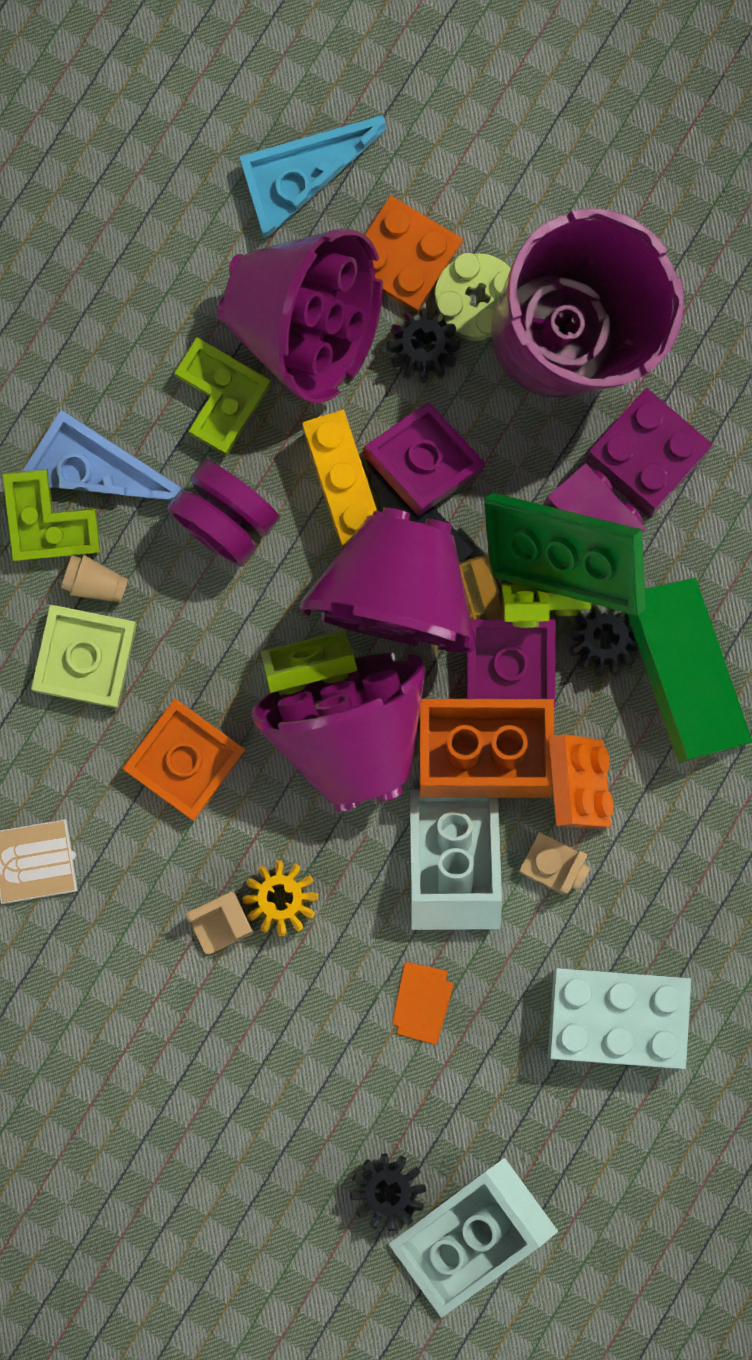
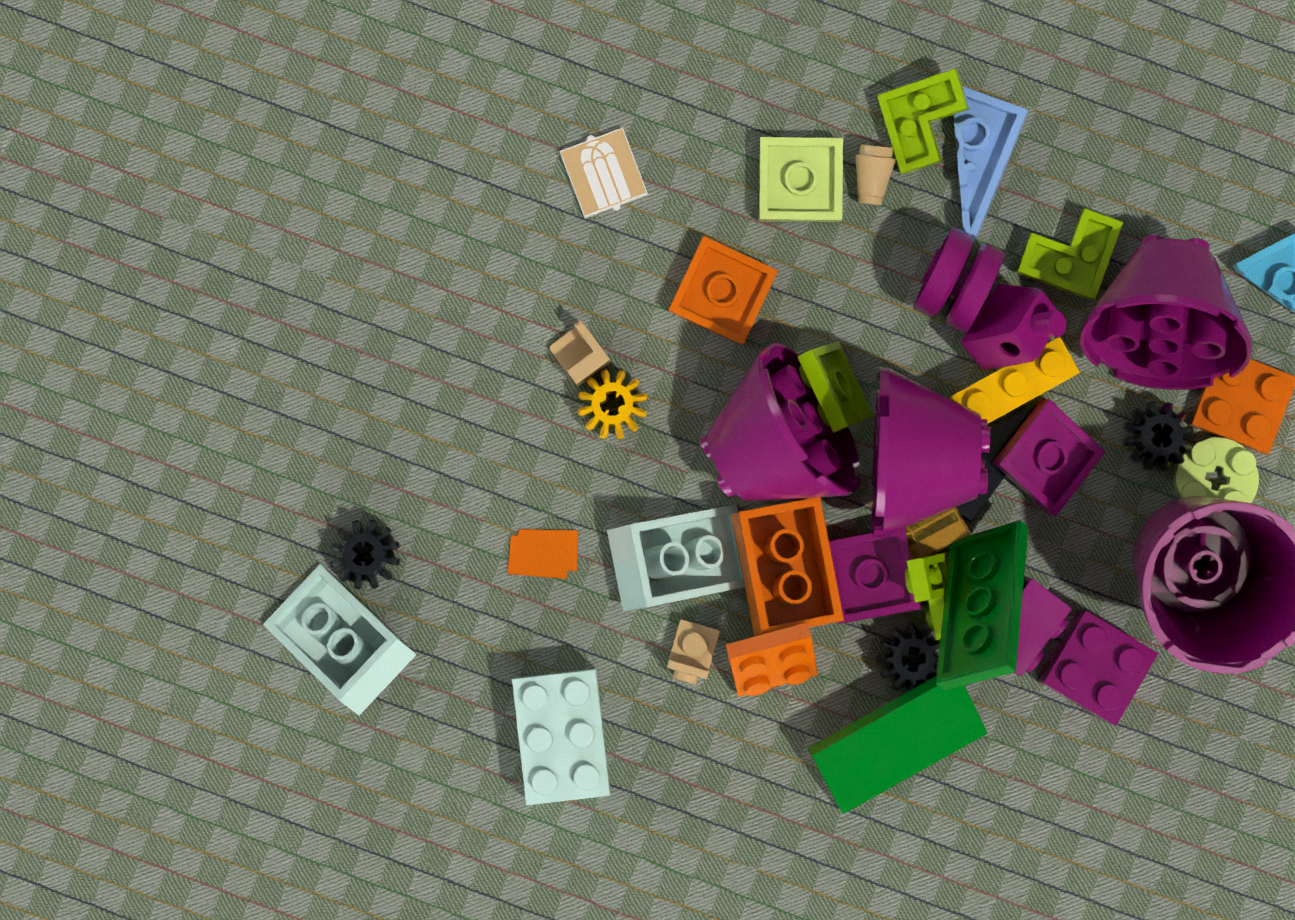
camera: 75 degrees right, 5 degrees up
(284, 466) = (1013, 327): none -> magenta torso

